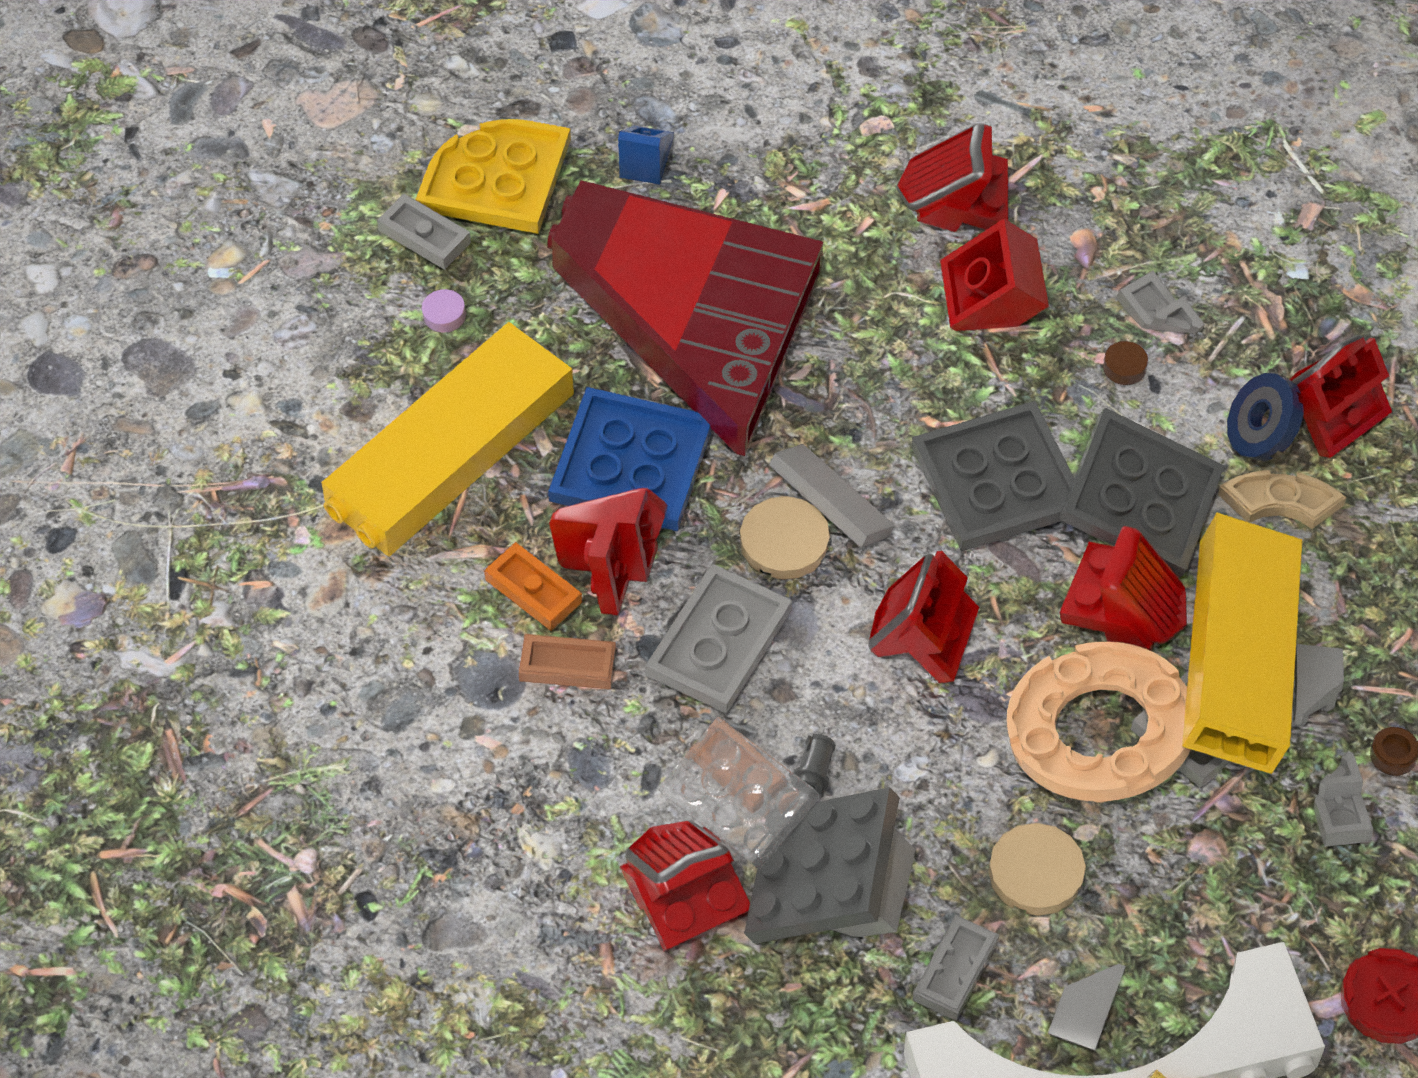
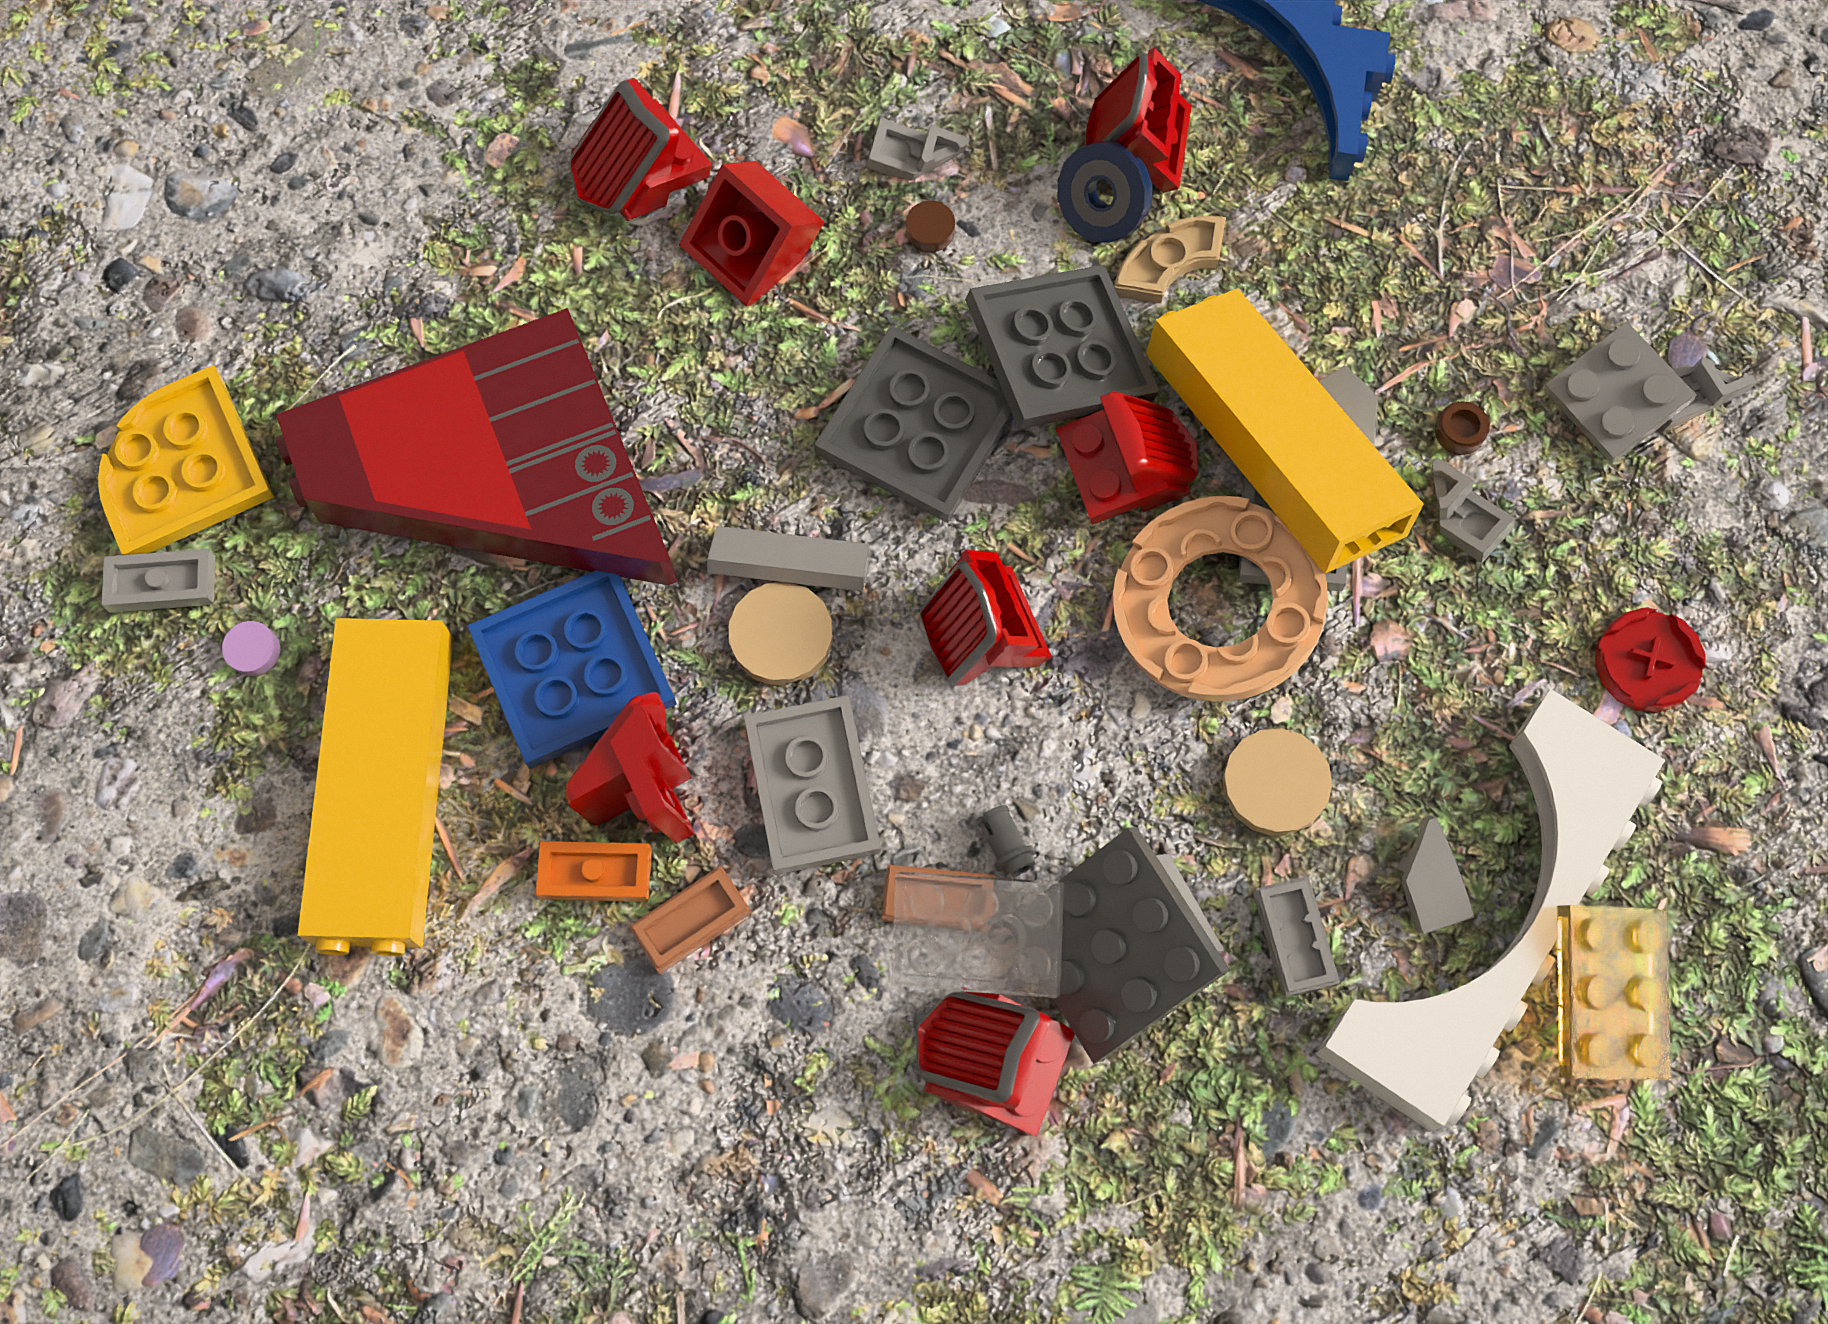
camera: 40 degrees left, 15 degrees up
(643, 153) = (307, 336): blue slope -> none

